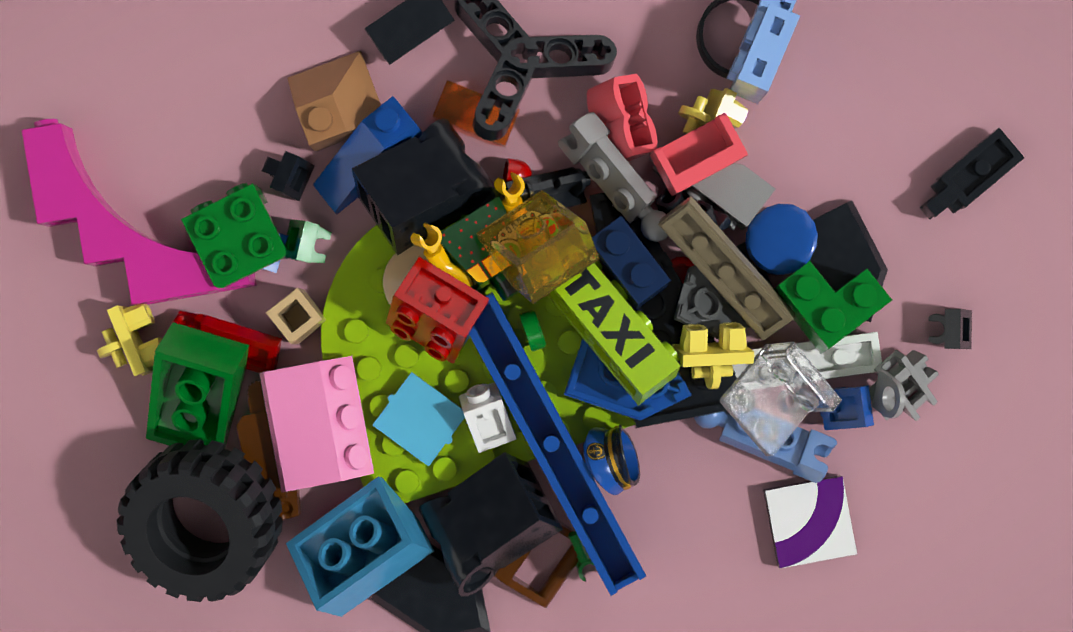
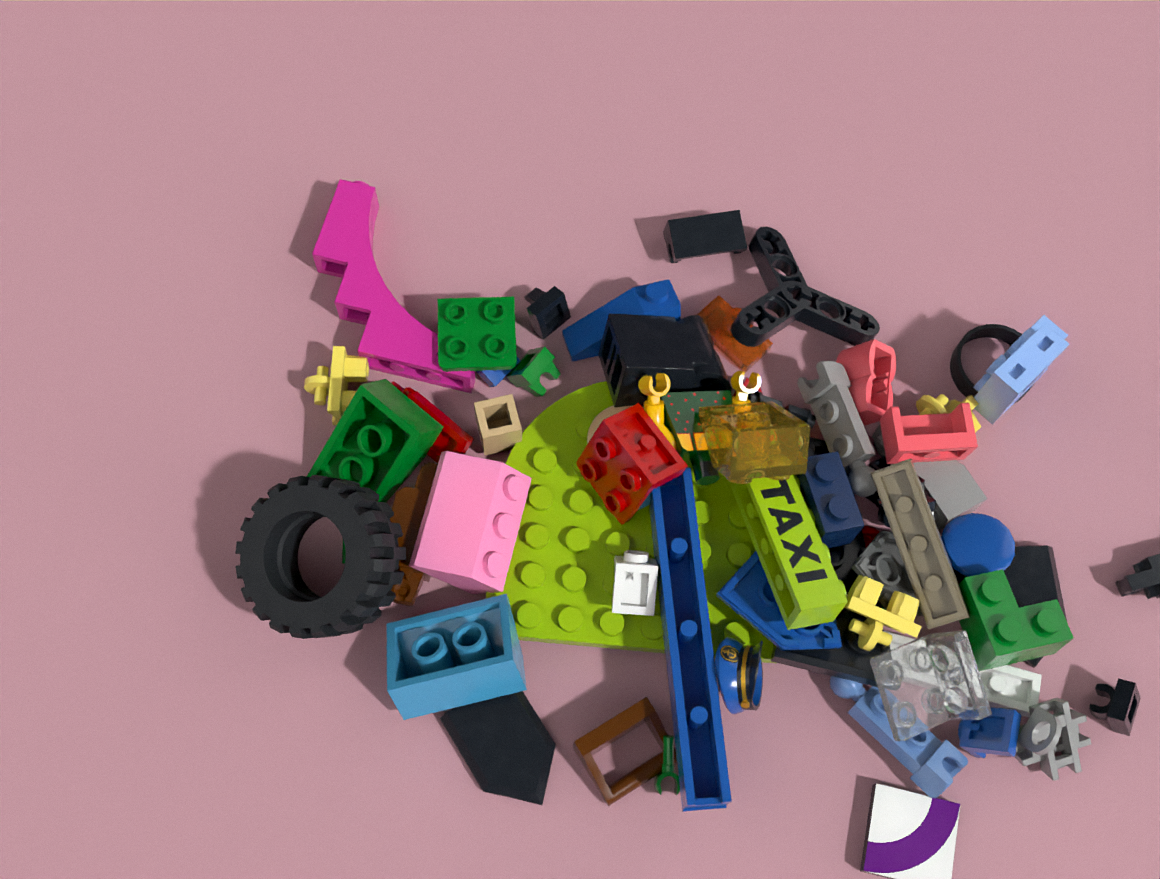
camera: 20 degrees right, 20 degrees down
(333, 99) = (611, 270): medium nougat slope -> none
(420, 419) = (568, 561): medium azure piece -> none
(490, 521) = (593, 683): black piece -> none
(533, 330) = (711, 523): green tile -> none

